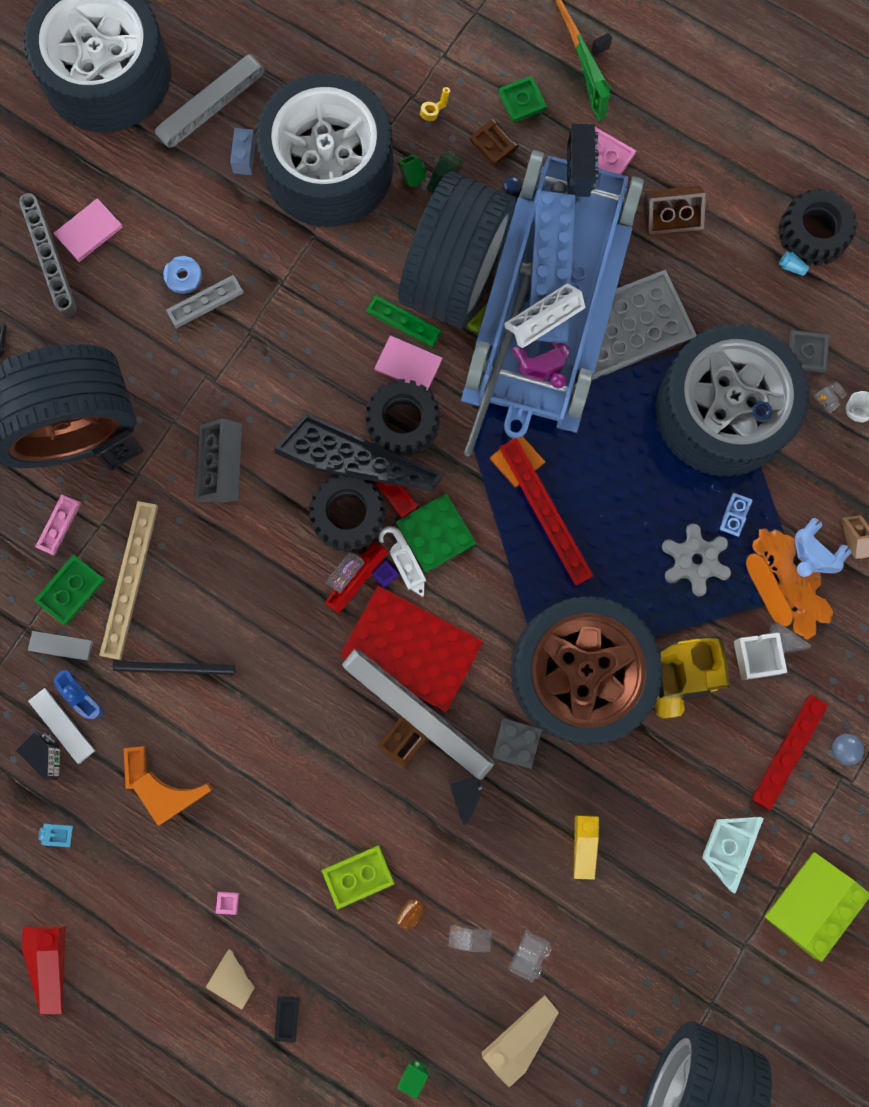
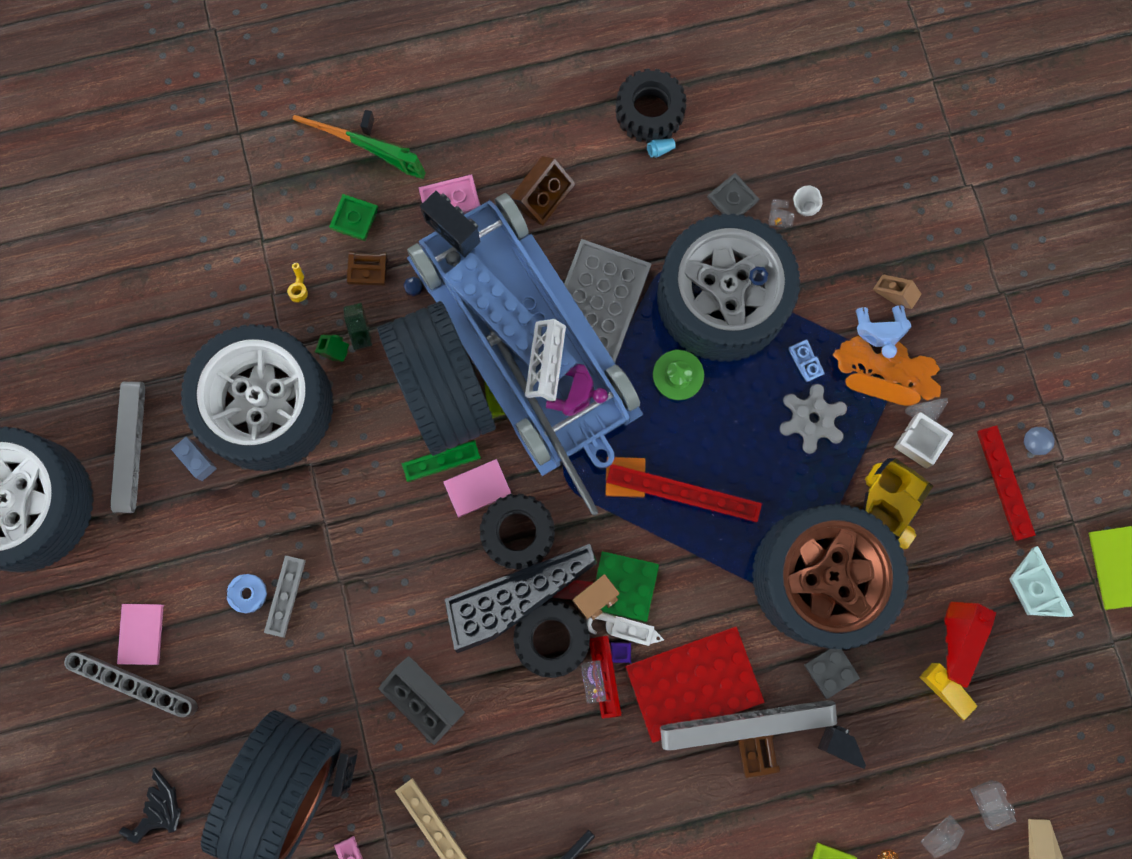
camera: 45 degrees left, 0 degrees up
(406, 514) = (595, 597): none -> medium nougat brick
(631, 431) = (678, 375): none -> bright green hat
(642, 818) = (966, 637): none -> red wedge

